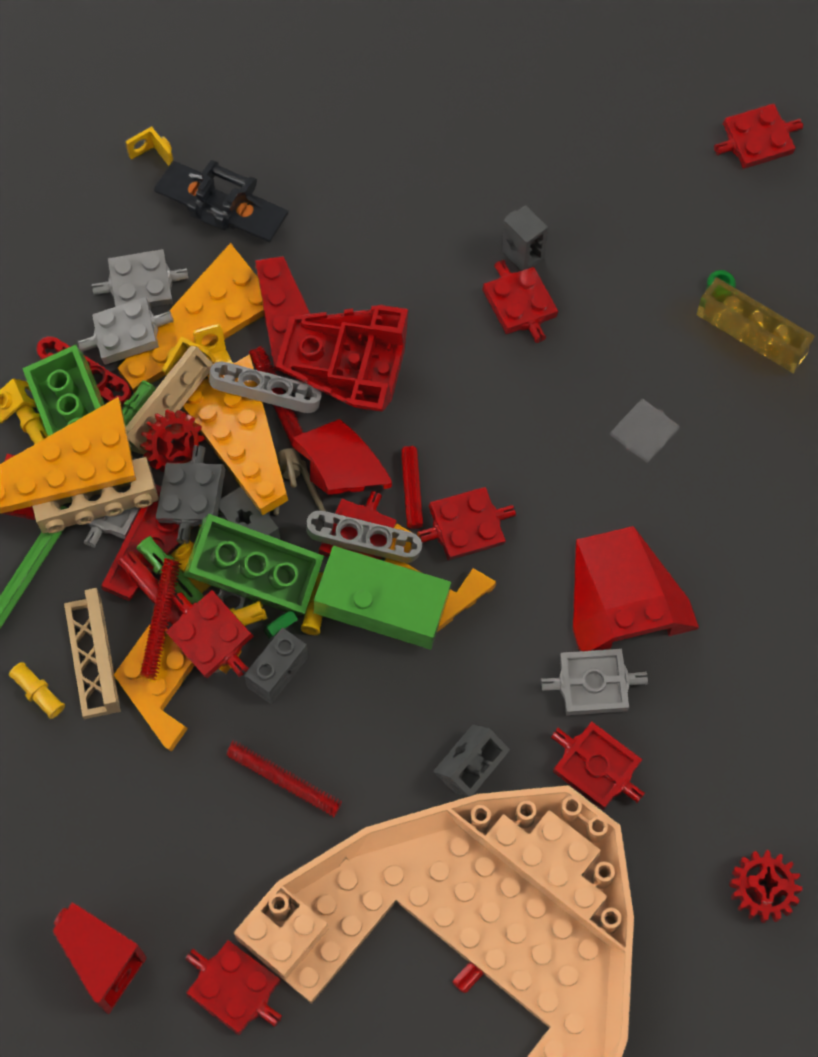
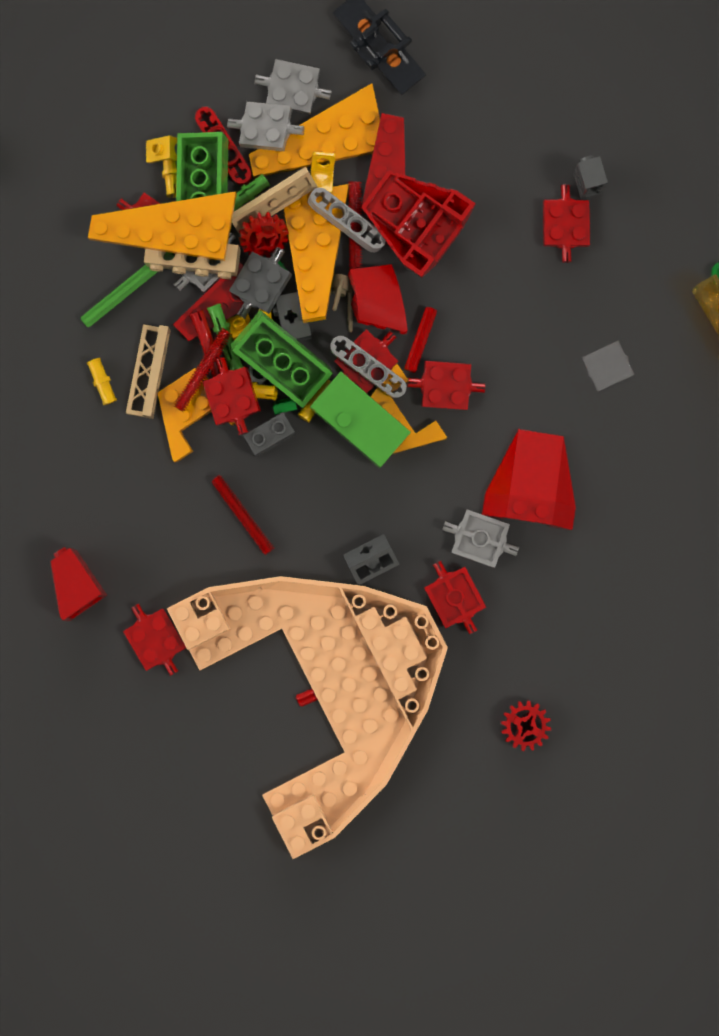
camera: 25 degrees right, 20 degrees up
(178, 351) = (296, 165): yellow bracket -> none

